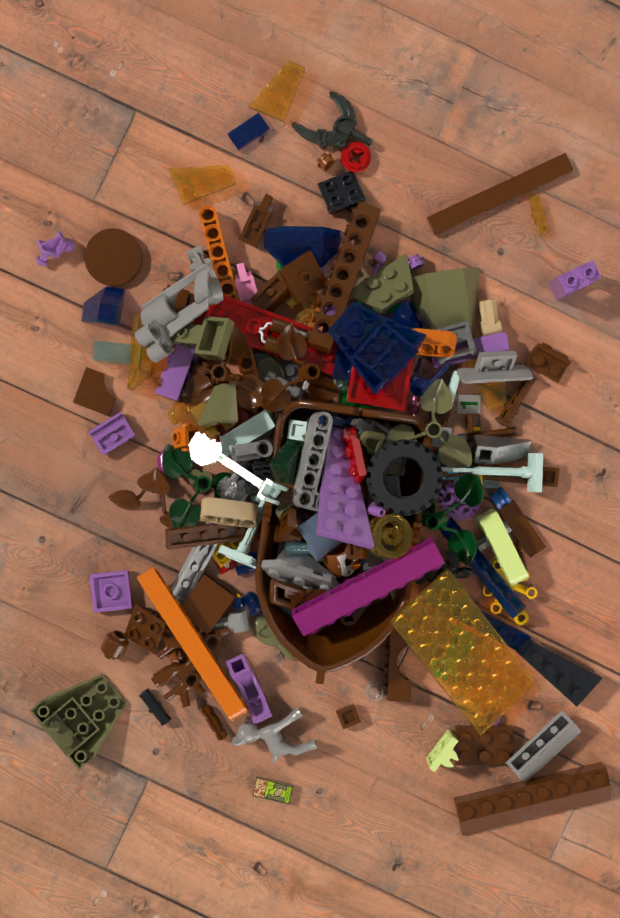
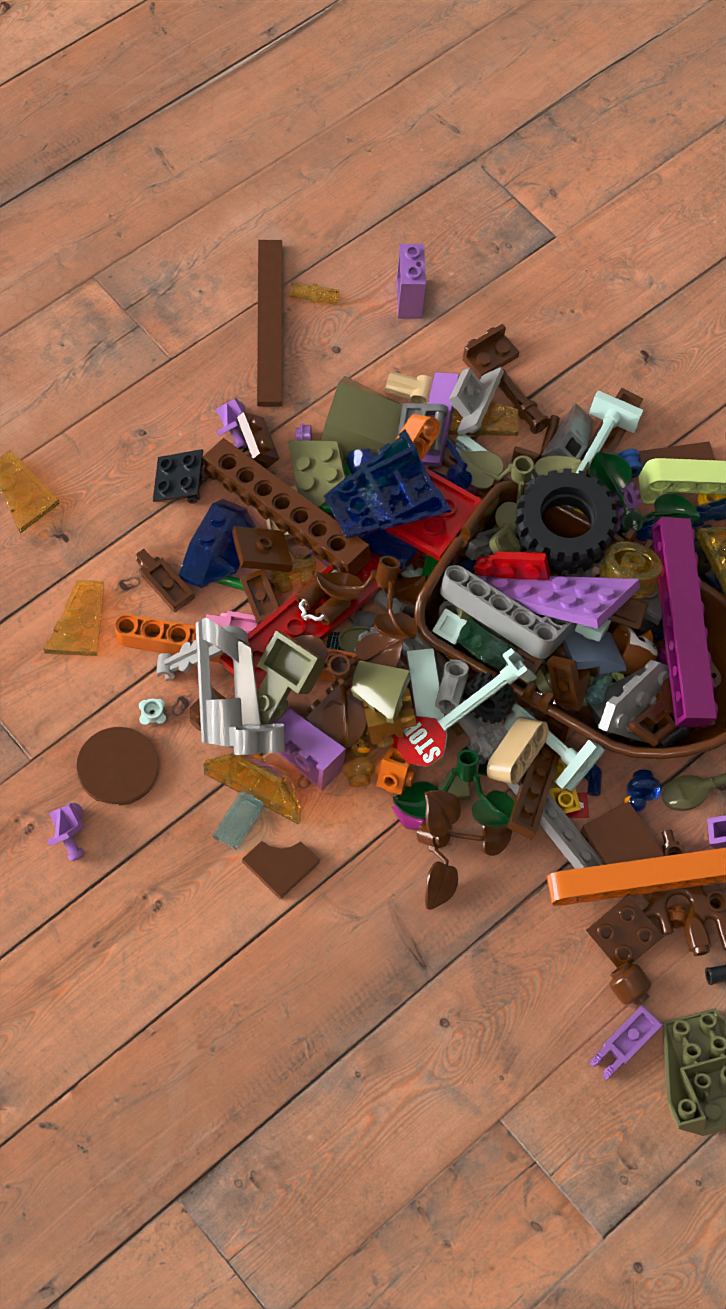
camera: 75 degrees left, 25 degrees down
(79, 657) = (628, 1040): none -> medium lavender hinge
(104, 307) = (177, 803): clear blue slope -> none
(111, 591) = (554, 958): medium lavender plate -> none
(112, 433) = (345, 865): medium lavender plate -> none
(162, 254) = (152, 704): none -> light aqua plate
(236, 621) = (659, 818): light grey axle -> none
(248, 131) = (48, 546): clear blue tile -> none
(325, 161) = (132, 478): dark orange plate -> none
(342, 127) = (104, 446): pearl dark grey bar -> none
(357, 148) = (135, 442): red gear -> none
(375, 510) = (593, 567): medium lavender arm -> none
(380, 258) = (280, 469): medium lavender hand -> none
(392, 232) = (258, 439): none -> reddish brown bracket
(401, 208) = (228, 414): none -> medium lavender piece
(469, 404) = (503, 450): white sticker -> none

